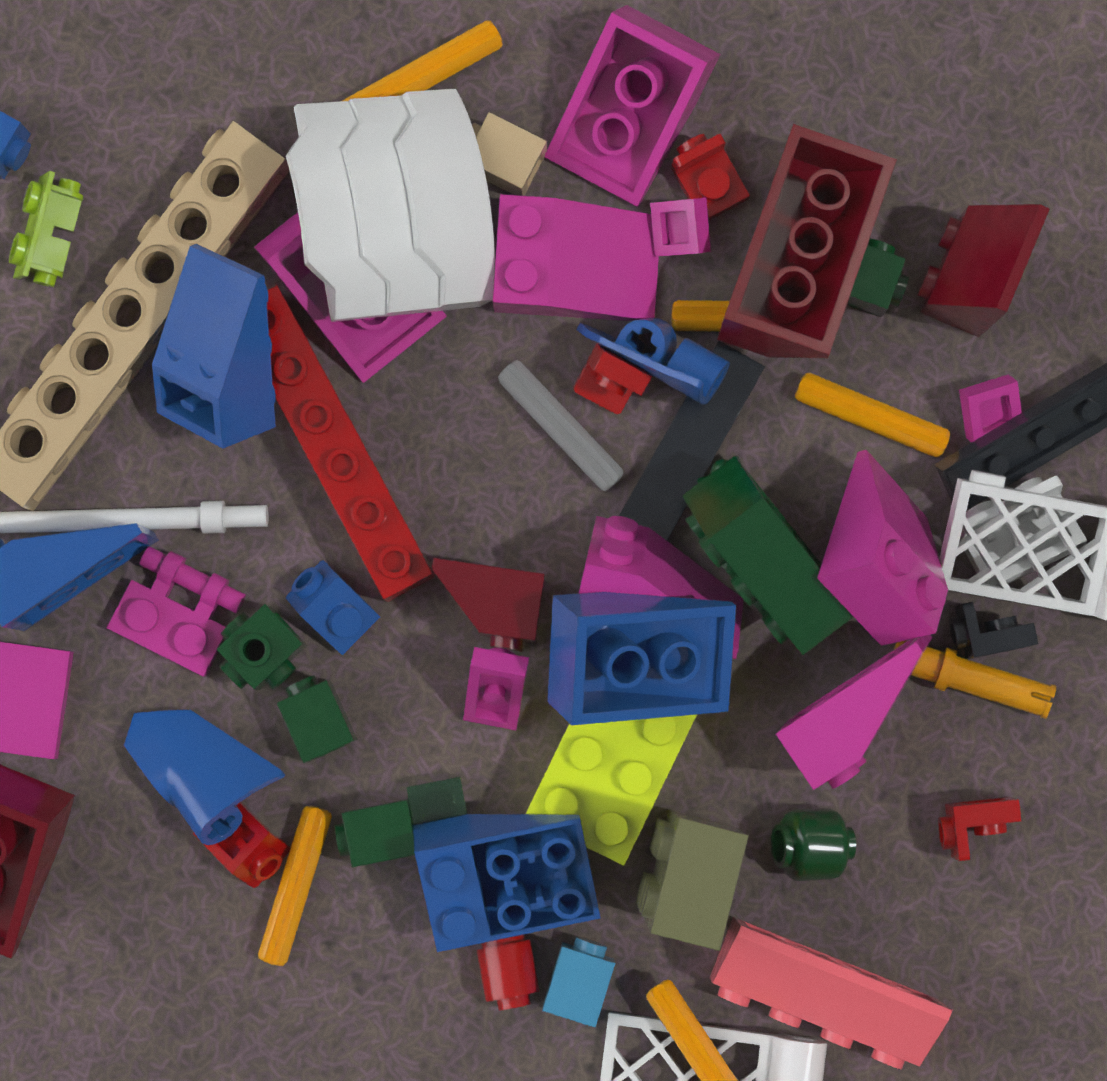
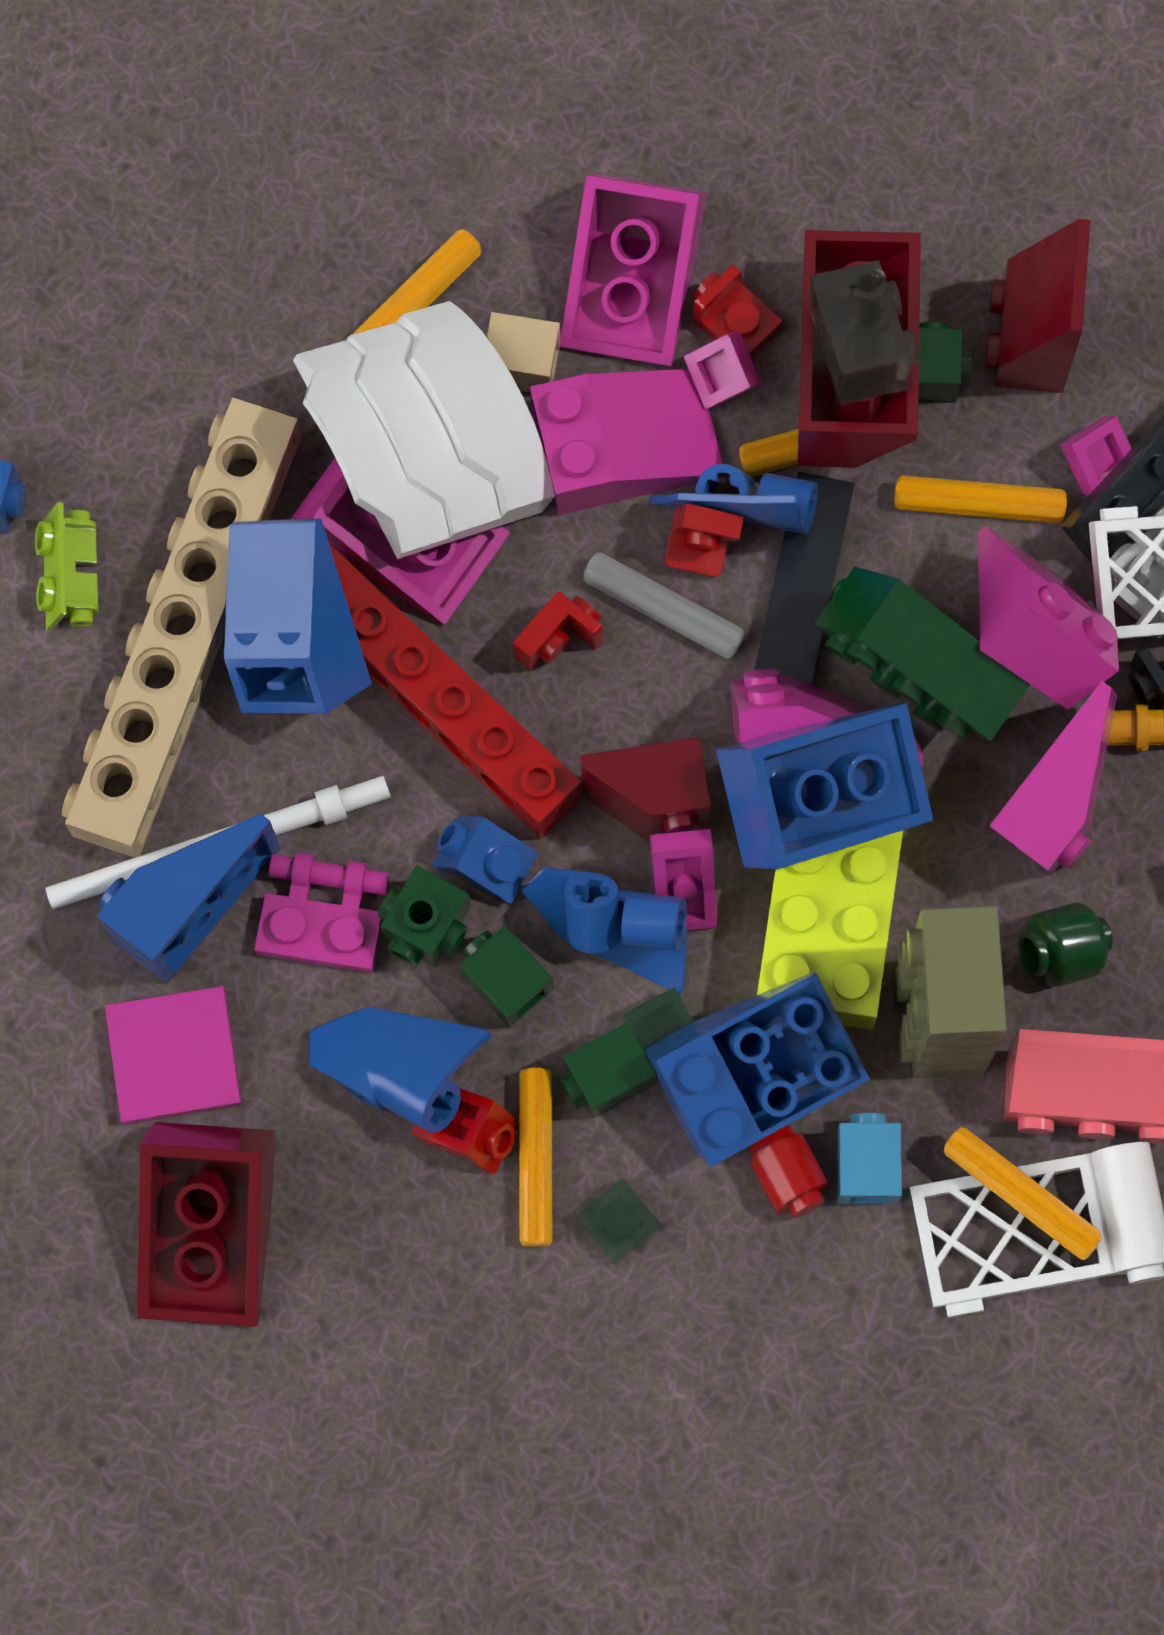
camera: 15 degrees left, 10 degrees down
(348, 964) = (618, 1222): none -> clear green plate
(418, 702) = (619, 925): none -> blue panel
(447, 422) = (546, 634): none -> red bracket
(809, 244) = (861, 331): none -> clear smoke brick

